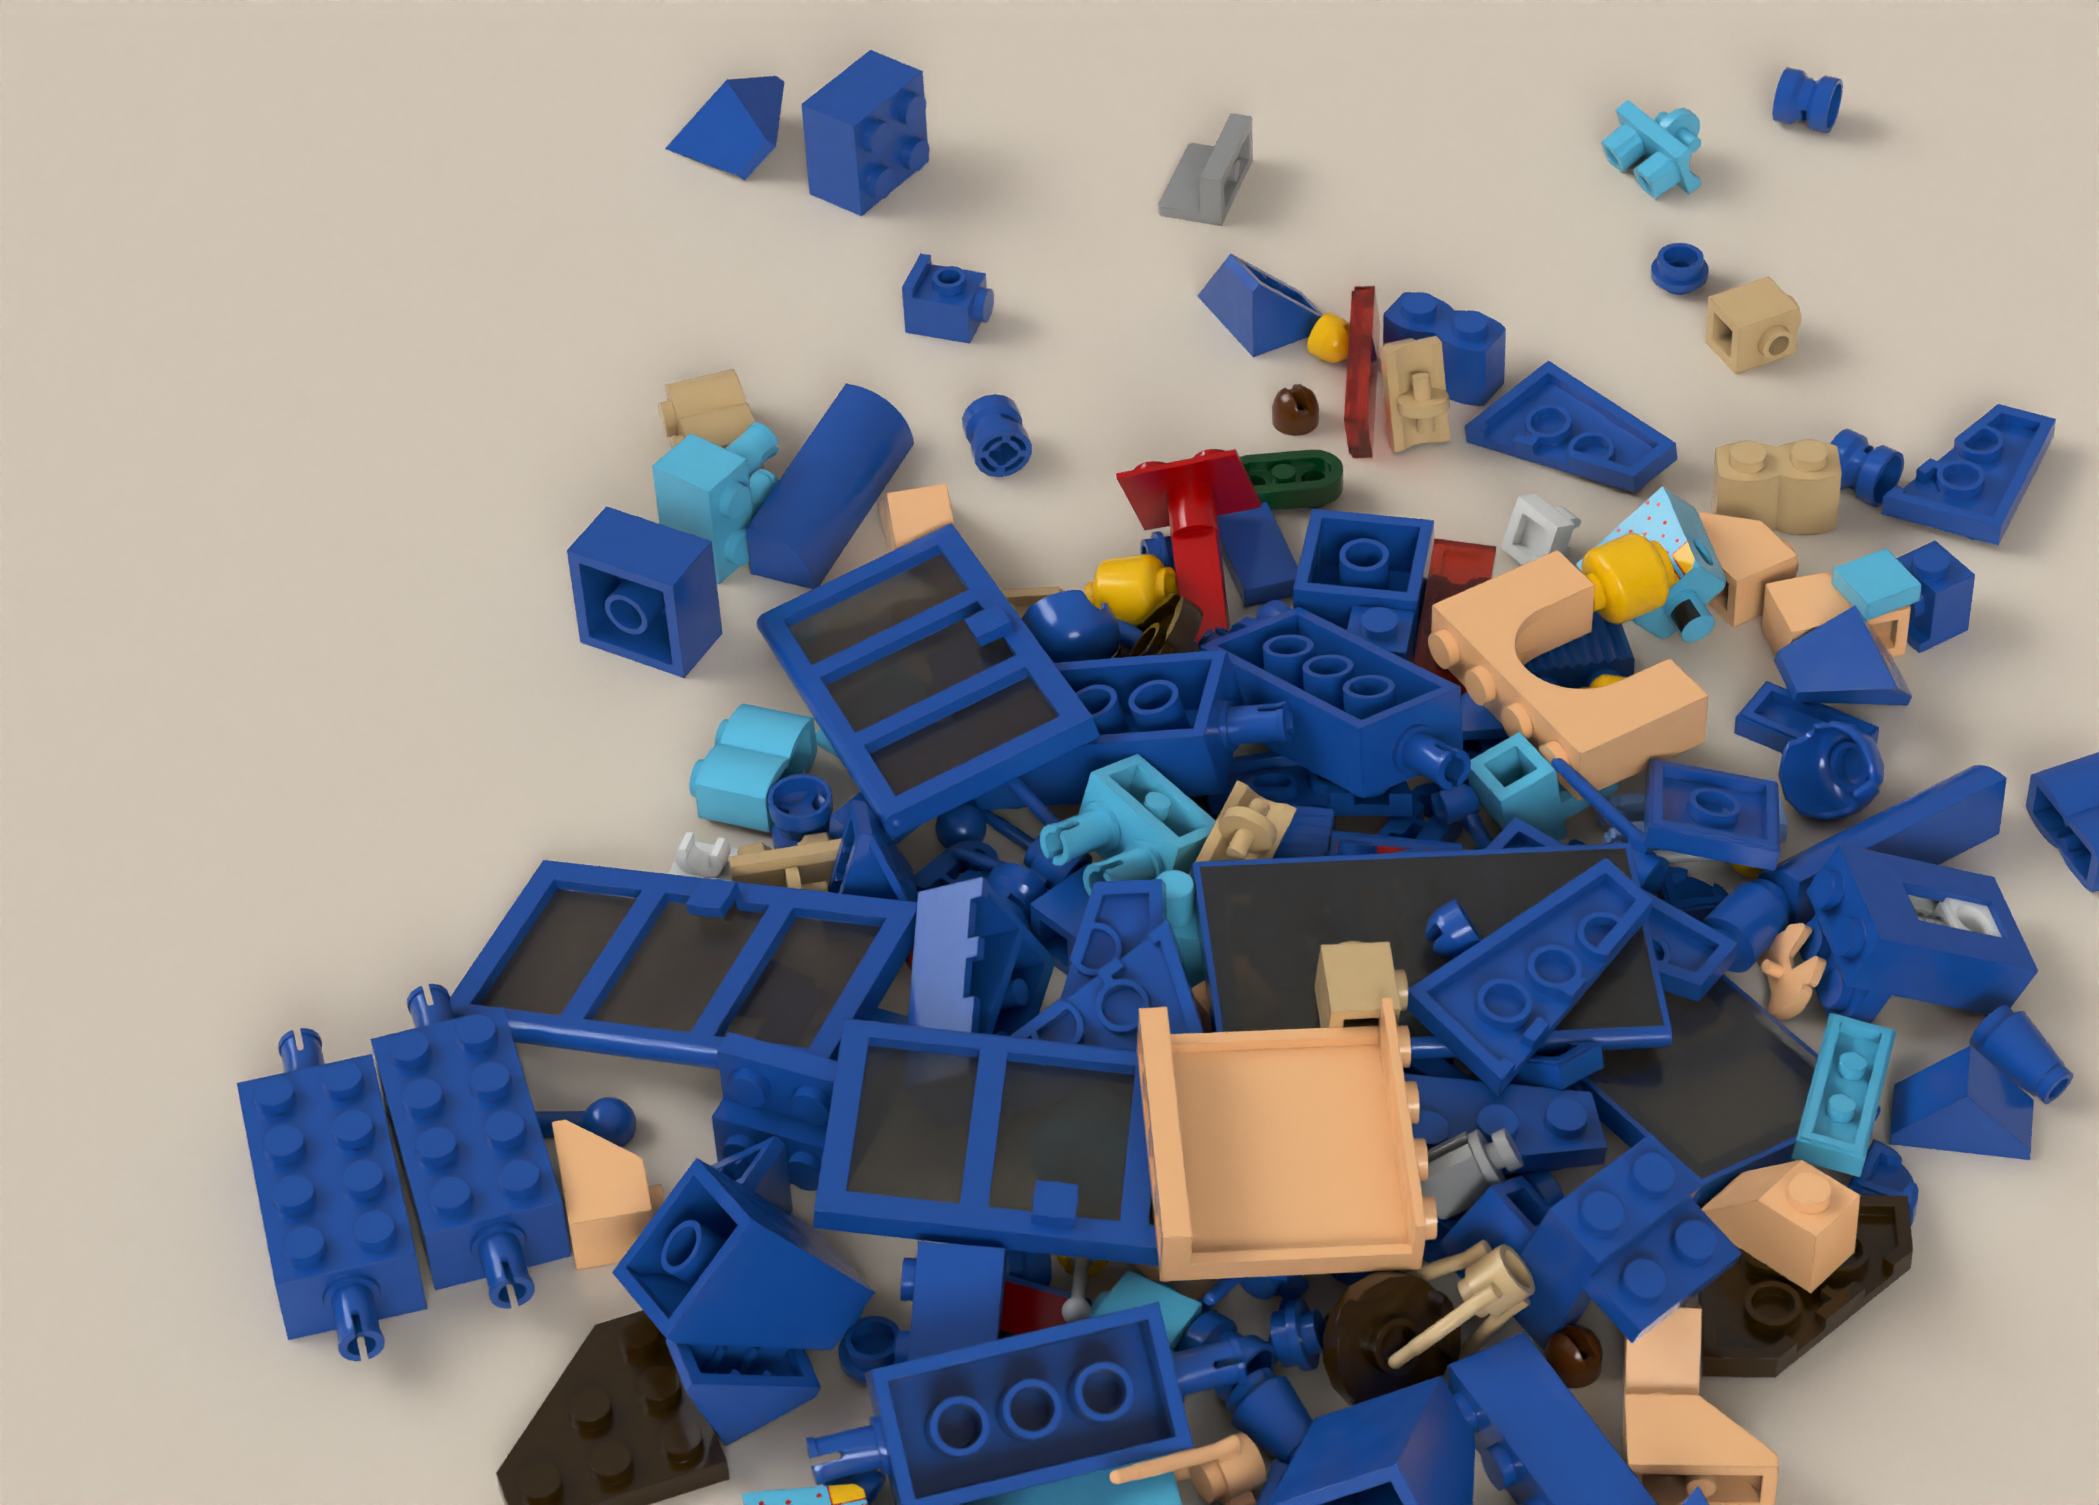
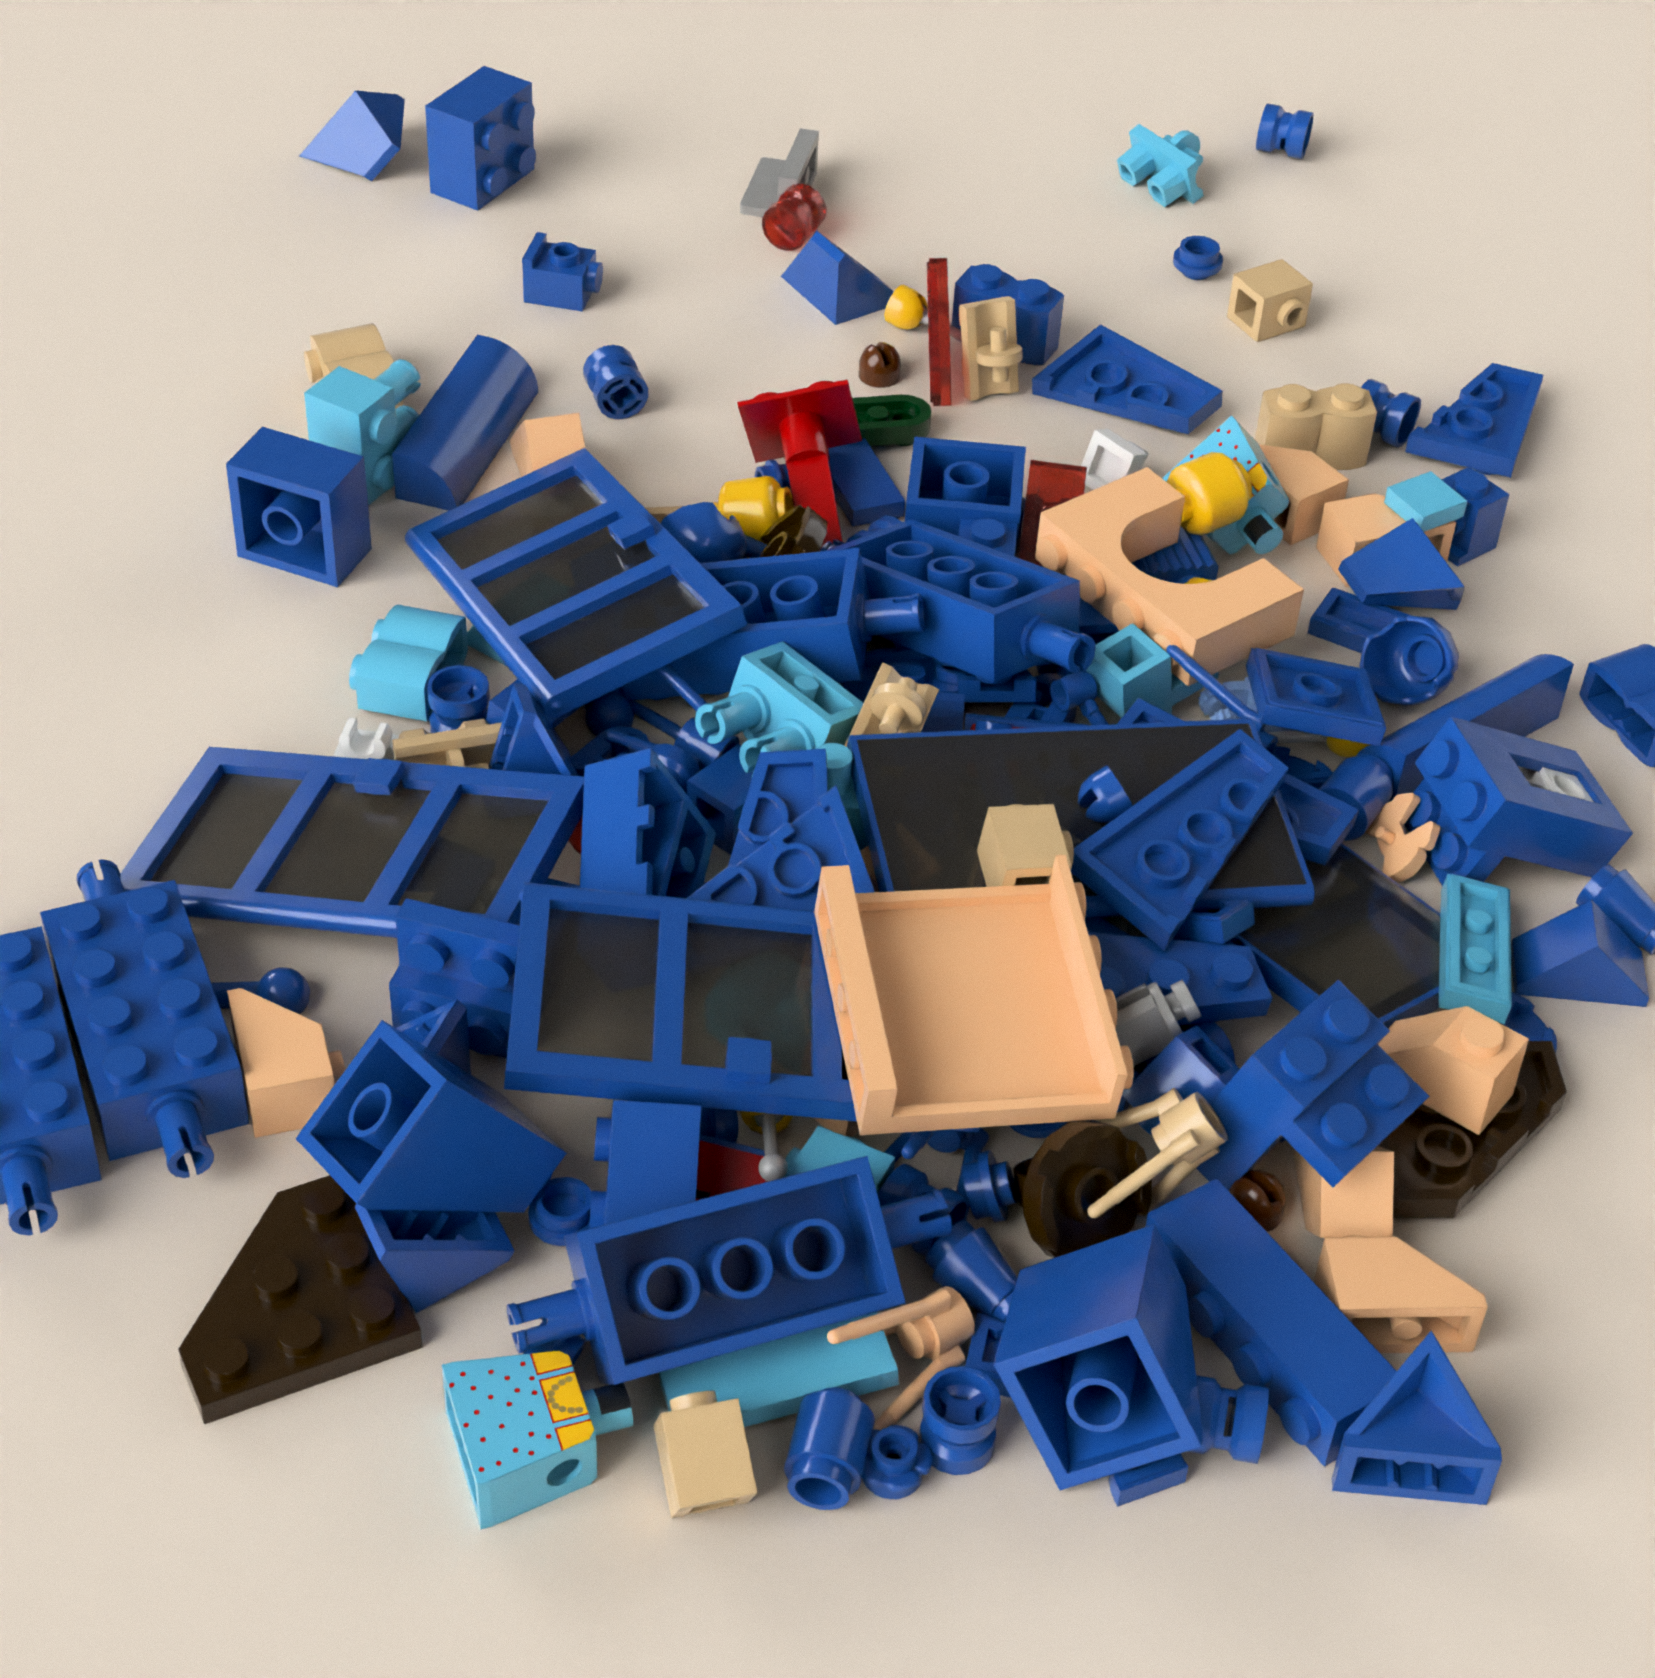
camera: 10 degrees left, 0 degrees up
(1216, 224) = (794, 217): none -> clear red wheel

